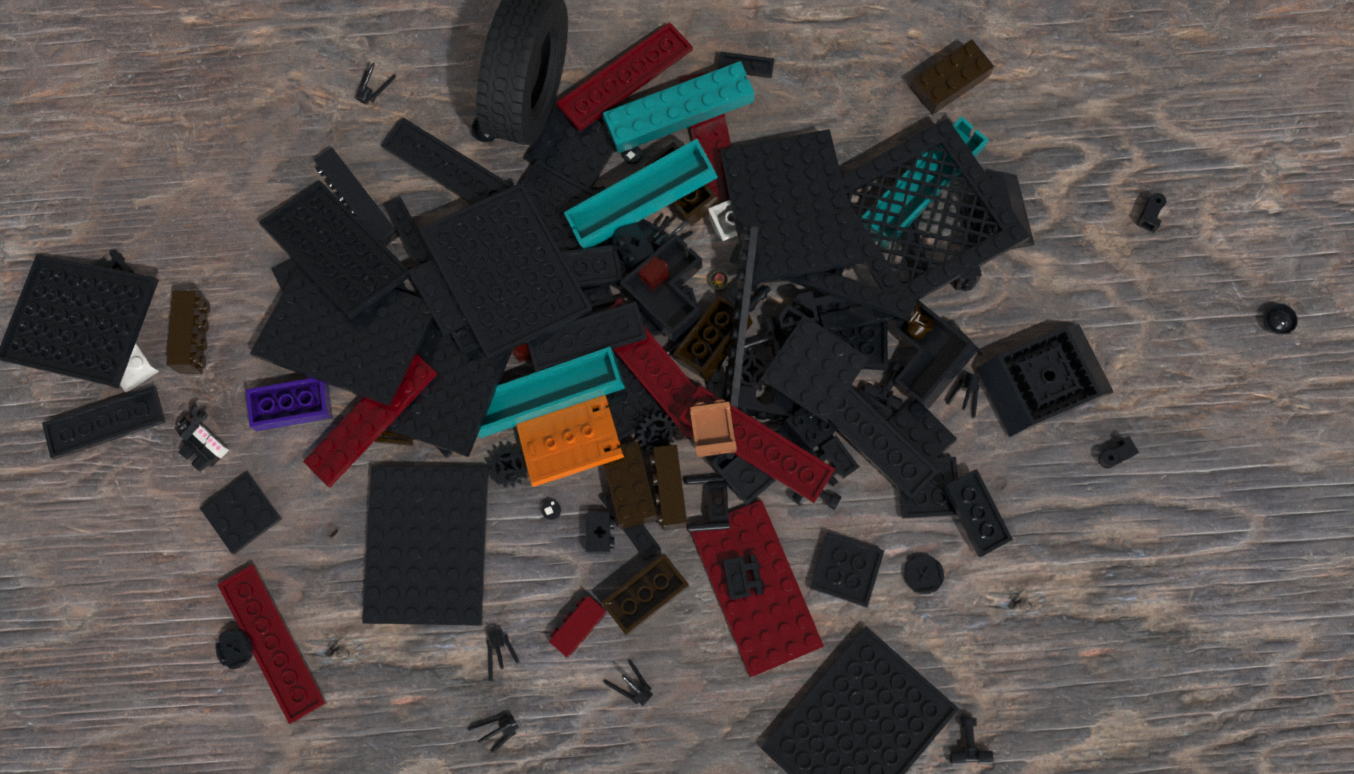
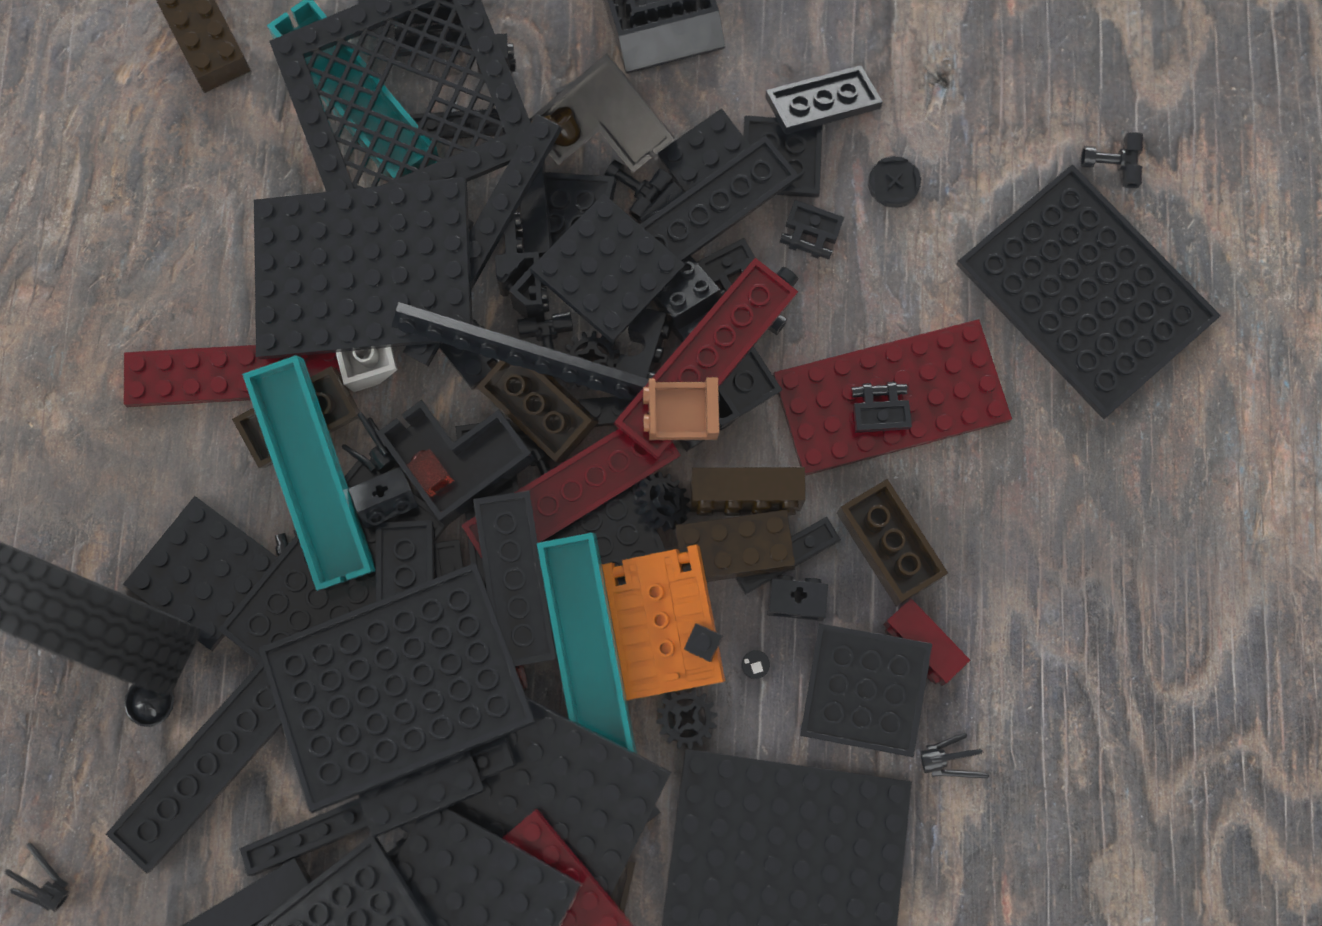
camera: 90 degrees left, 0 degrees up
(507, 725) = (1056, 755): black plant -> none
(539, 586) = (866, 690): none -> black plate
(555, 466) = (703, 642): none -> black plate
(624, 76) = (108, 484): dark red plate -> none
(632, 155) = (233, 489): black tile -> none
(641, 693) = (1023, 566): black plant -> none
(679, 107) = (176, 408): teal piece -> none
(716, 501) = (772, 430): black plate -> none
(719, 280) = (449, 389): tile -> none
(752, 65) = (124, 308): black plate -> none
(847, 569) = (880, 275): black plate -> none
(880, 519) = (813, 222): none -> black plate
(970, 385) = (647, 83): black plant -> none

